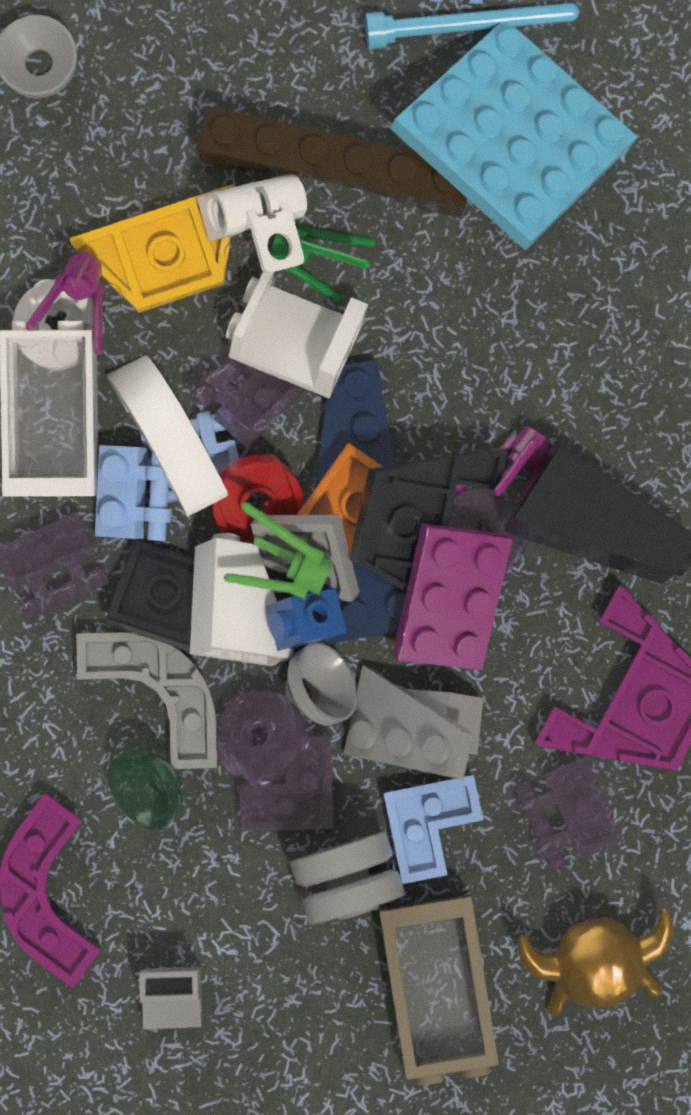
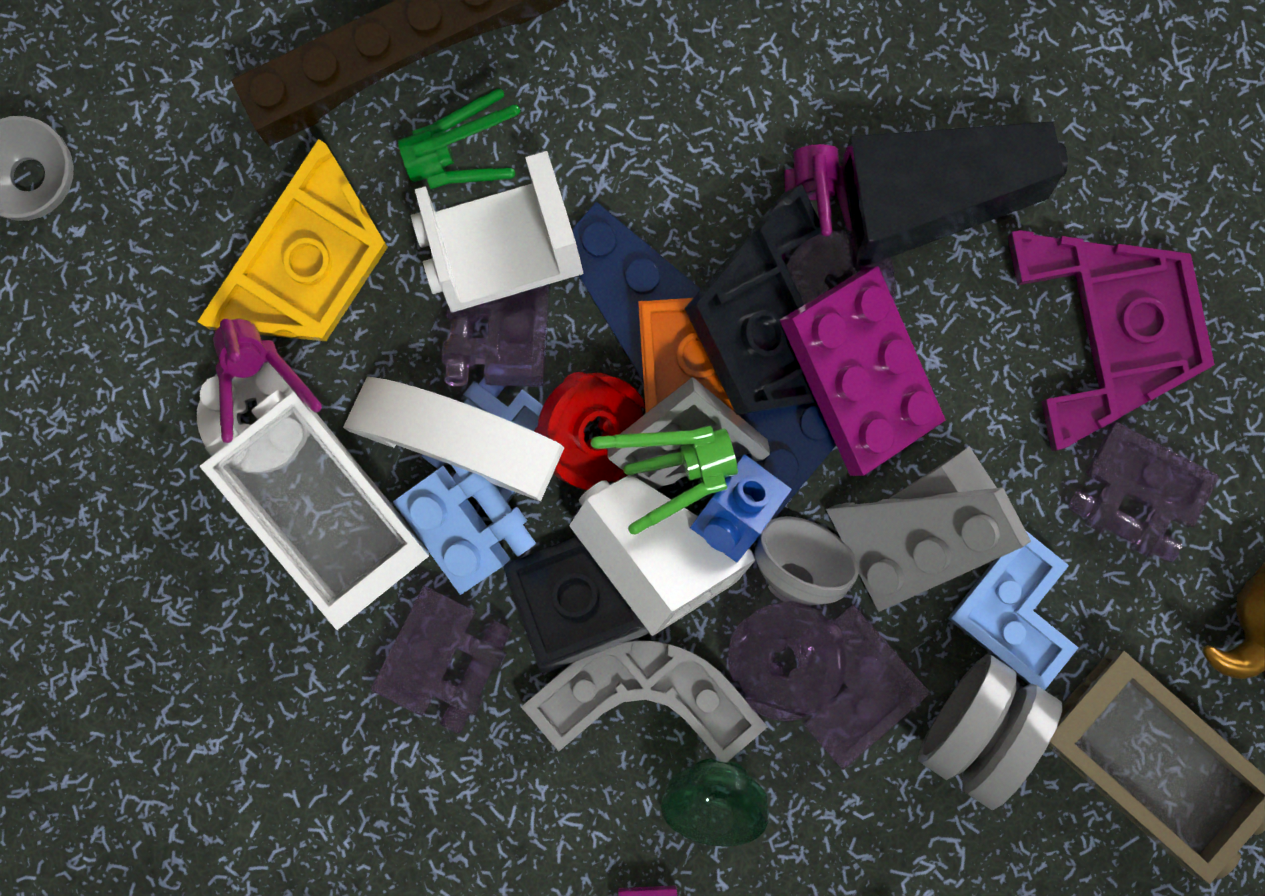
camera: 40 degrees left, 0 degrees up
(263, 207) = (364, 138): white piece -> none

